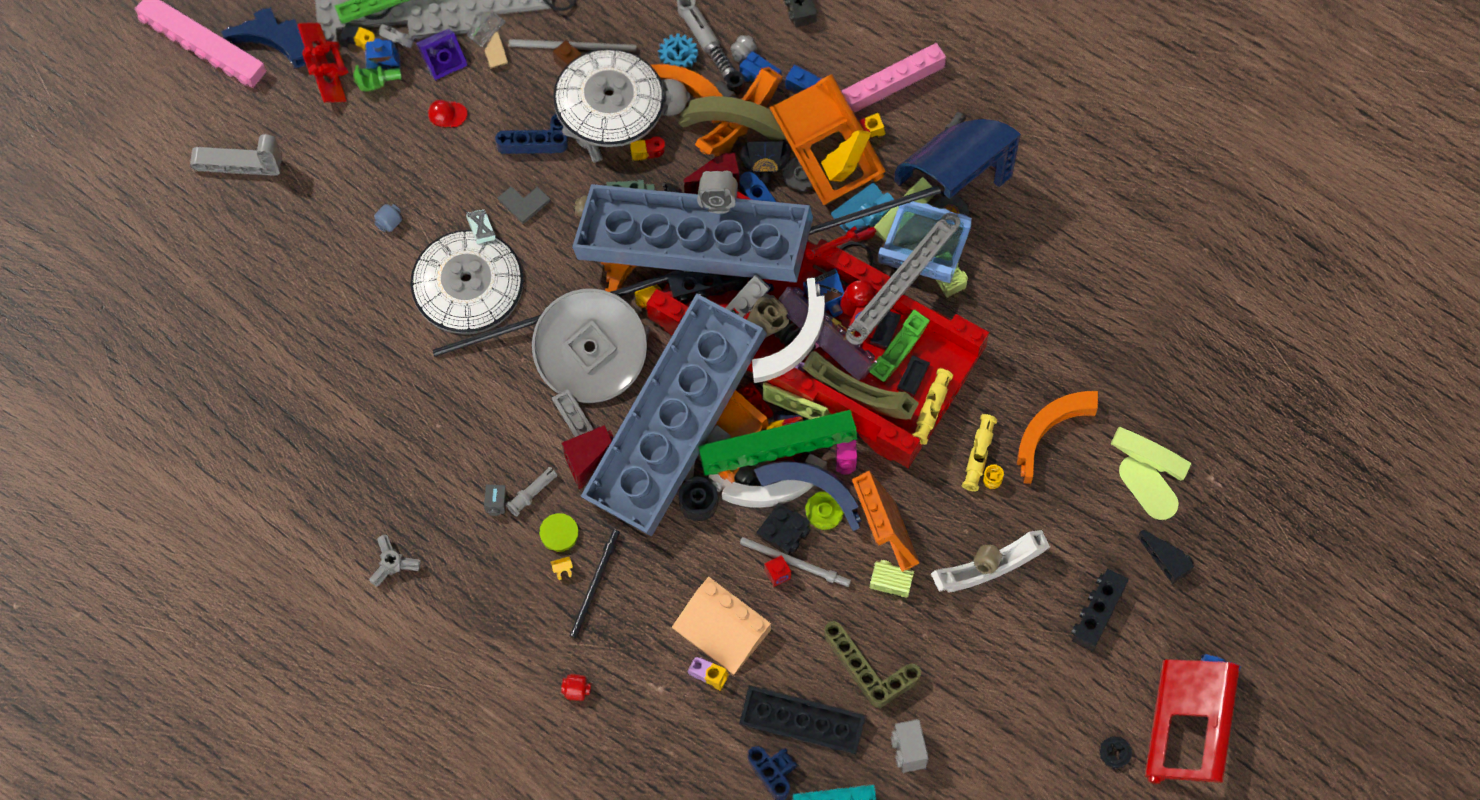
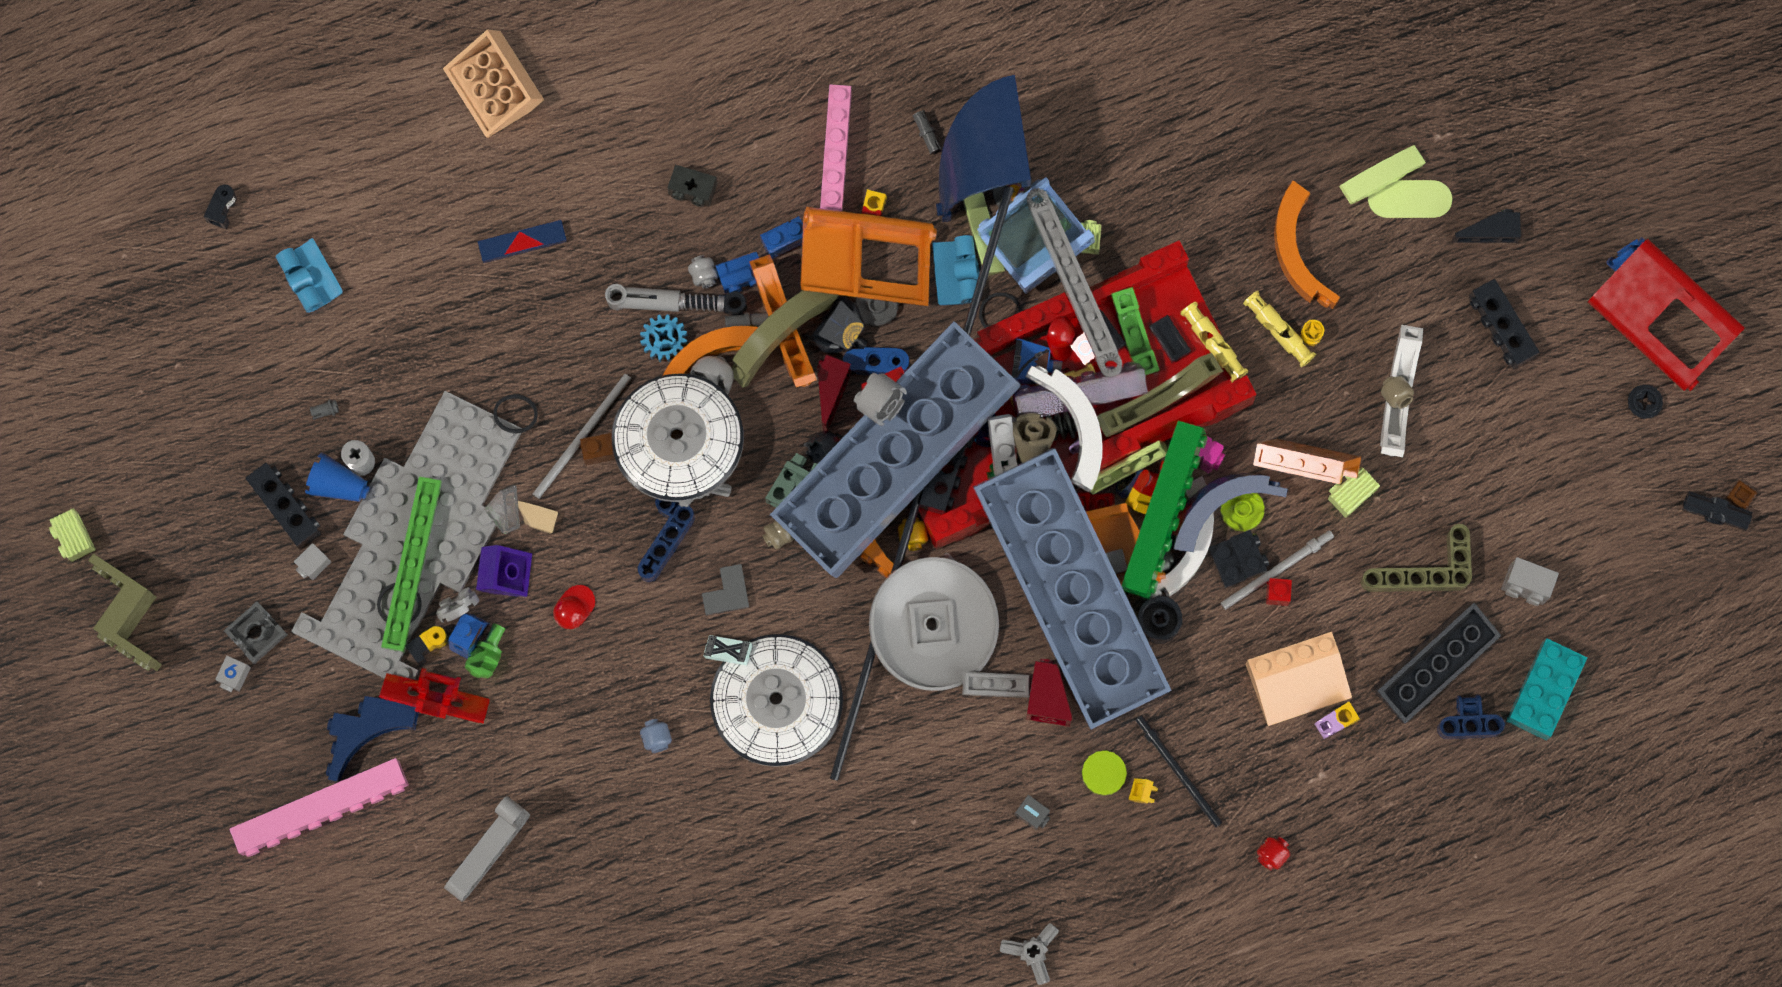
camera: 55 degrees left, 10 degrees up
(525, 497) = (1048, 783): light grey pin -> none
(647, 148) = (752, 432): leg -> none
(846, 157) = (897, 255): yellow slope -> none
(850, 235) = (998, 353): red piece -> none

